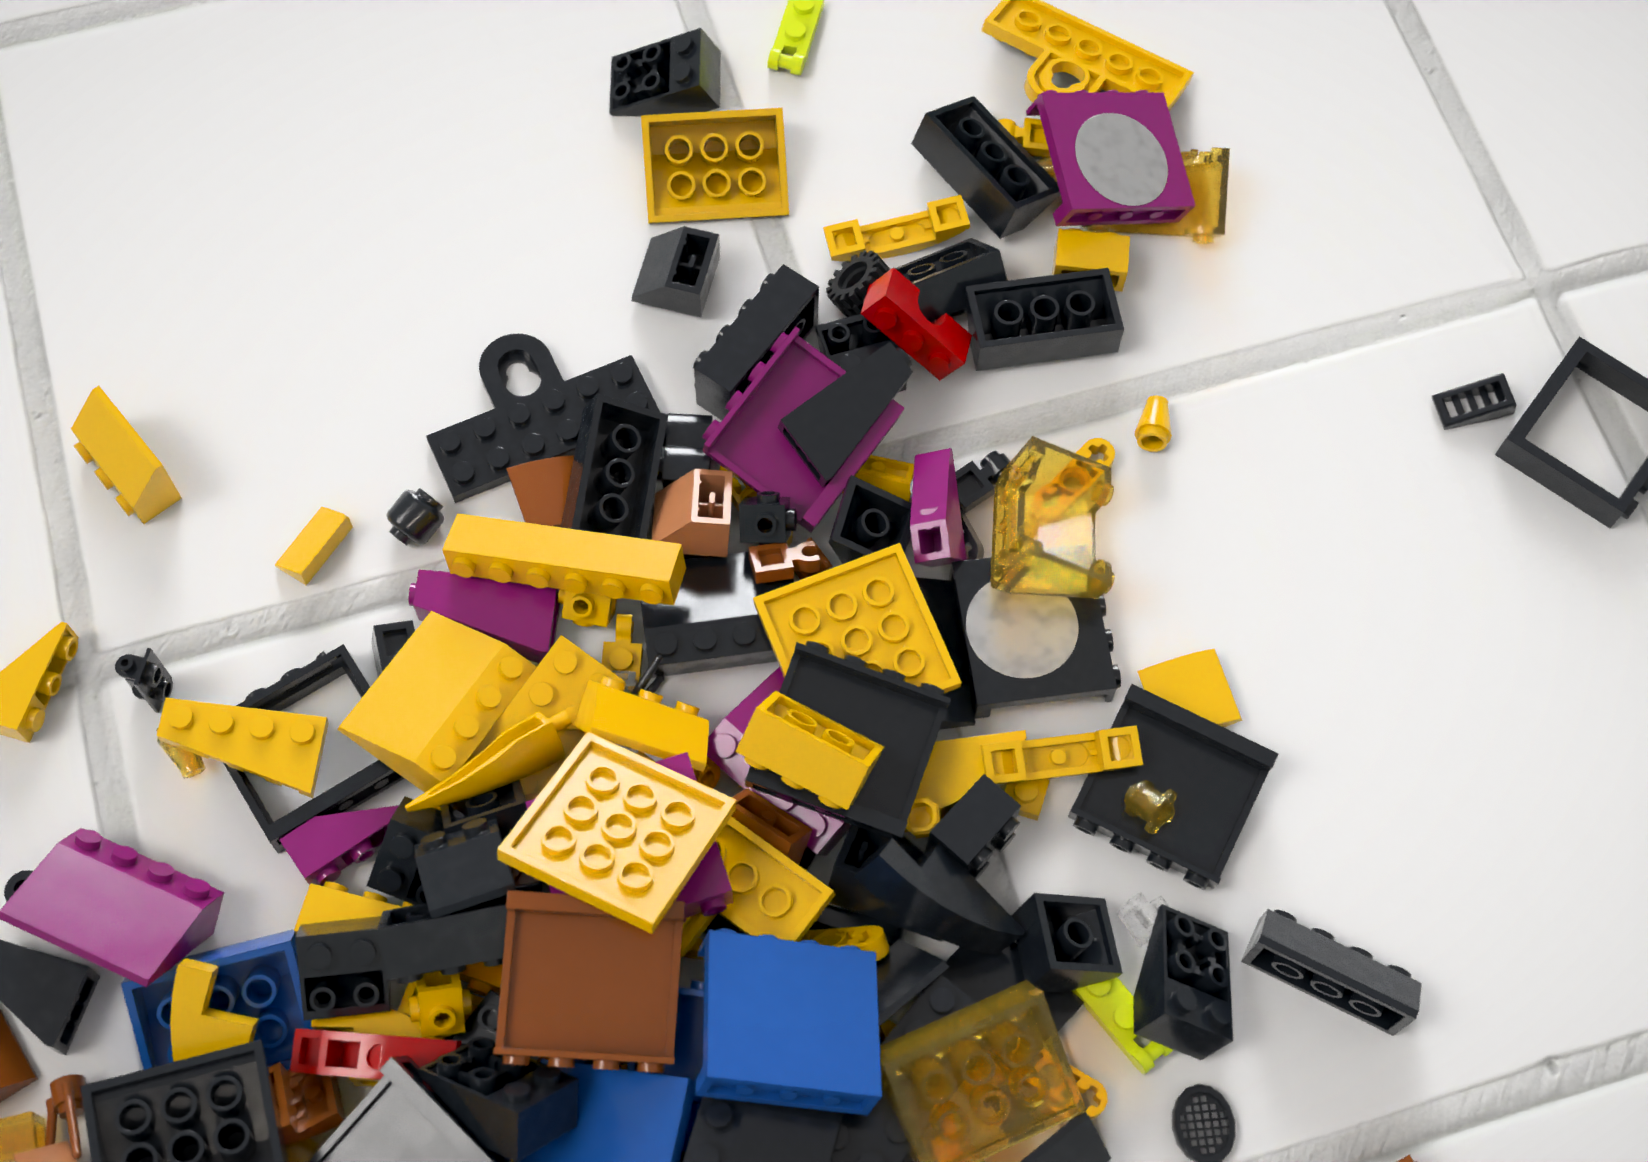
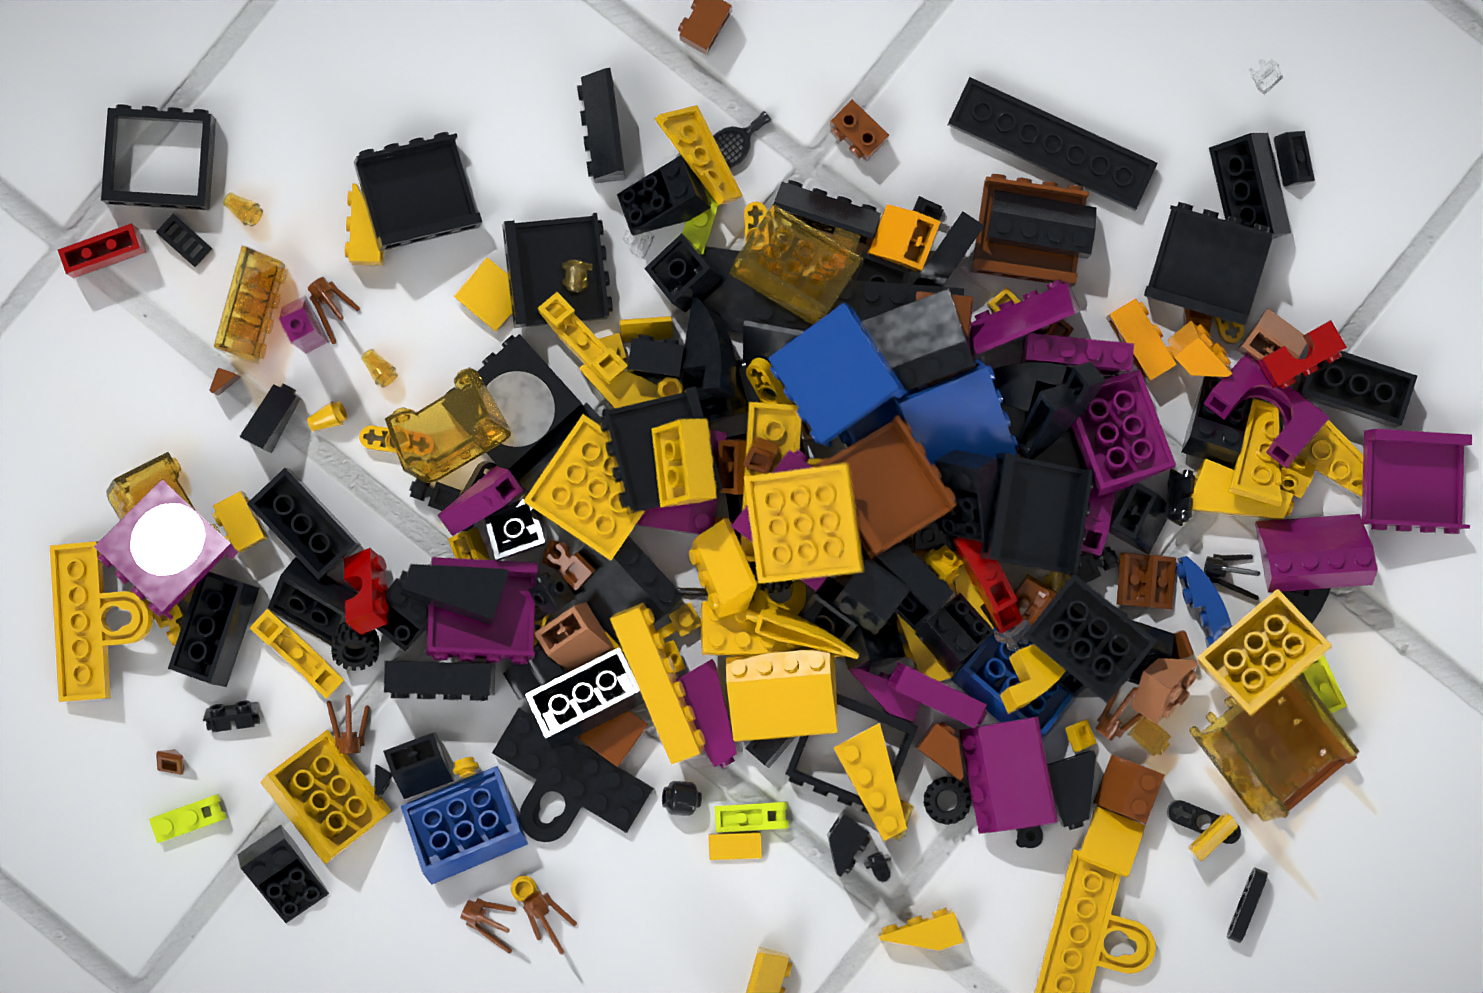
camera: 120 degrees left, 20 degrees up
(90, 1049) = (1080, 735): none -> yellow plate
(146, 801) = (954, 815): none -> black tyre
(206, 659) = (844, 841): none -> black slope
(216, 849) = (942, 748): none -> dark orange slope
(280, 1047) = (1014, 635): none -> clear tile
(284, 881) = (937, 695): none -> magenta slope
(330, 581) = (750, 817): none -> neon yellow plate
(418, 287) = (537, 905): none -> dark orange plant
(454, 295) = (523, 887): none -> yellow plate
(467, 230) = (474, 913): none -> dark orange plant
(573, 276) = (463, 825): none -> blue slope
(636, 318) = (465, 767): none -> yellow plate
(683, 216) = (382, 780): none -> black slope
(753, 859) = (761, 455): none -> dark orange slope
(760, 221) = (349, 741): none -> dark orange plant
(871, 51) = (170, 761): none -> dark orange slope
(882, 123) = (219, 717): none -> black hinge
(1021, 853) = (656, 327): none -> yellow slope
(1175, 513) = (380, 369): none -> clear yellow cone
(1192, 356) = (271, 417): none -> black slope
(1227, 1075) = (699, 149): none -> yellow wing
(1272, 340) = (222, 380): none -> dark orange slope
(1288, 445) = (302, 325): none -> magenta slope
(1312, 507) = (321, 292): none -> dark orange plant
(1351, 406) = (250, 306): none -> clear yellow slope
(1360, 598) = (362, 245): none -> yellow slope
(1382, 685) = (416, 191): none -> black panel
(1472, 486) = (245, 210): none -> clear yellow cone
(1513, 306) = (102, 250): none -> red brick

